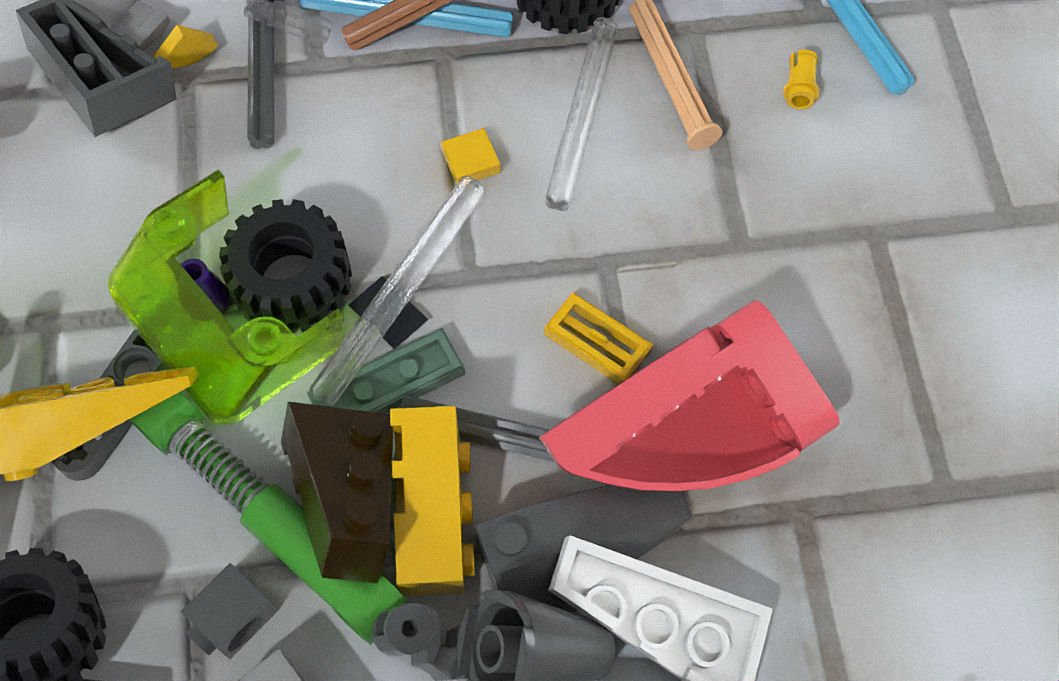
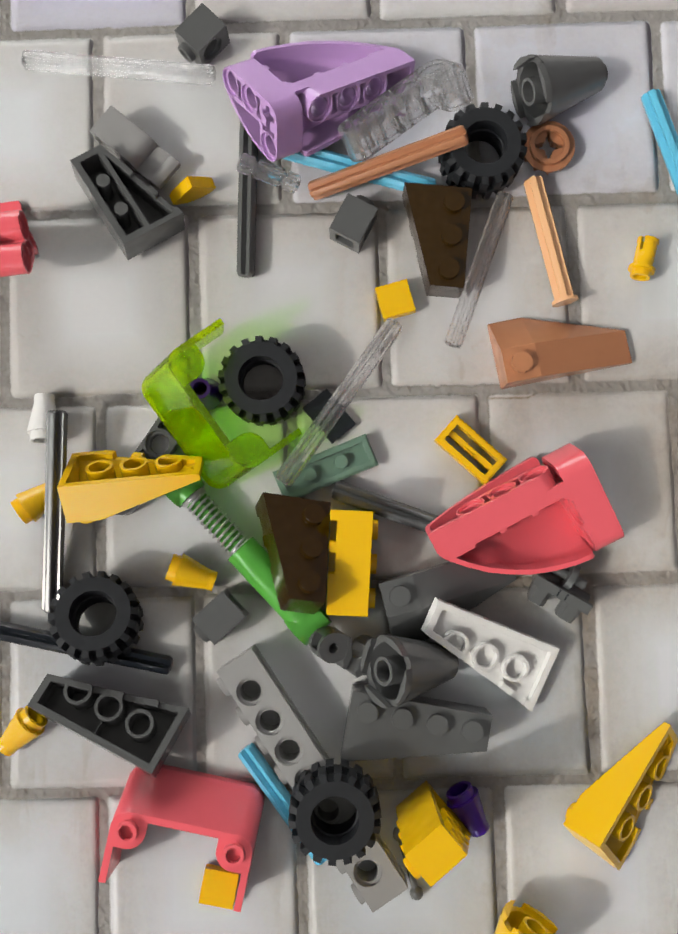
camera: 10 degrees right, 20 degrees up
(180, 550) = (190, 573): none -> yellow cone
(405, 67) = (353, 222): none -> dark grey brick
(523, 69) = (440, 234): none -> dark brown wedge
(686, 204) = (547, 350): none -> nougat wedge
(781, 534) = (564, 587): none -> dark grey hips

